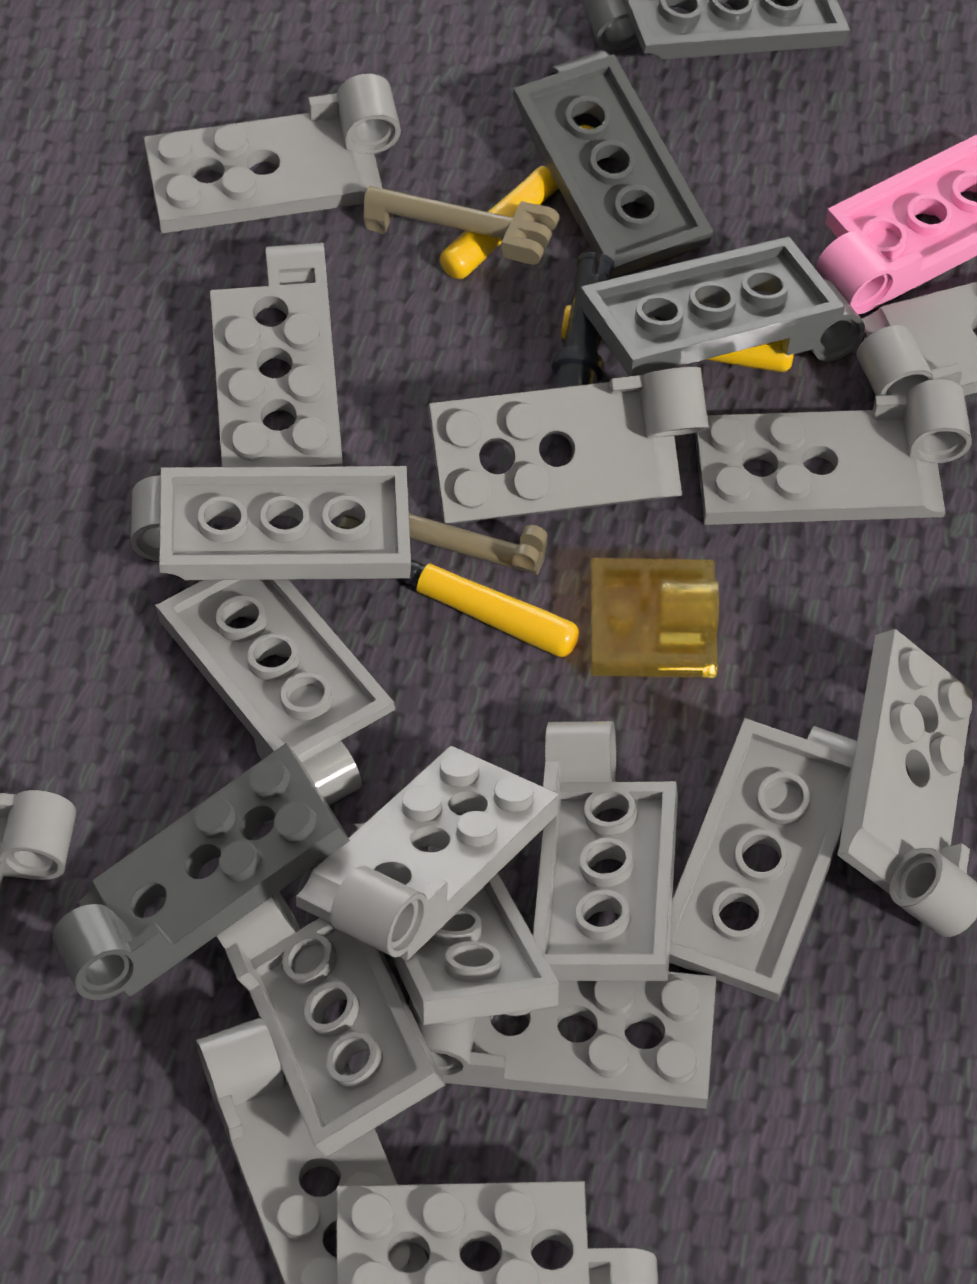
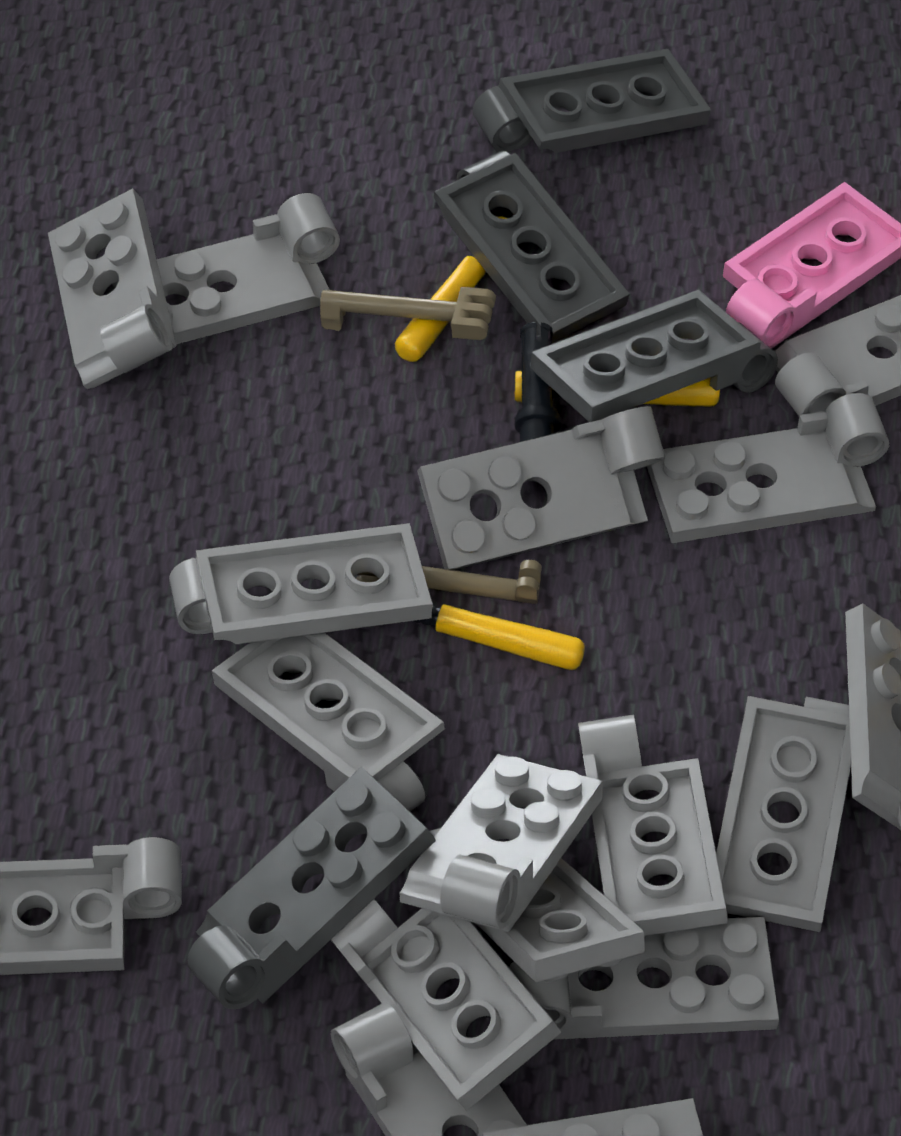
camera: 10 degrees left, 5 degrees down
(151, 198) = (132, 321): none -> light grey hinge
(303, 340) = (277, 381): light grey hinge -> none
(653, 617) = (647, 625): clear yellow plate -> none

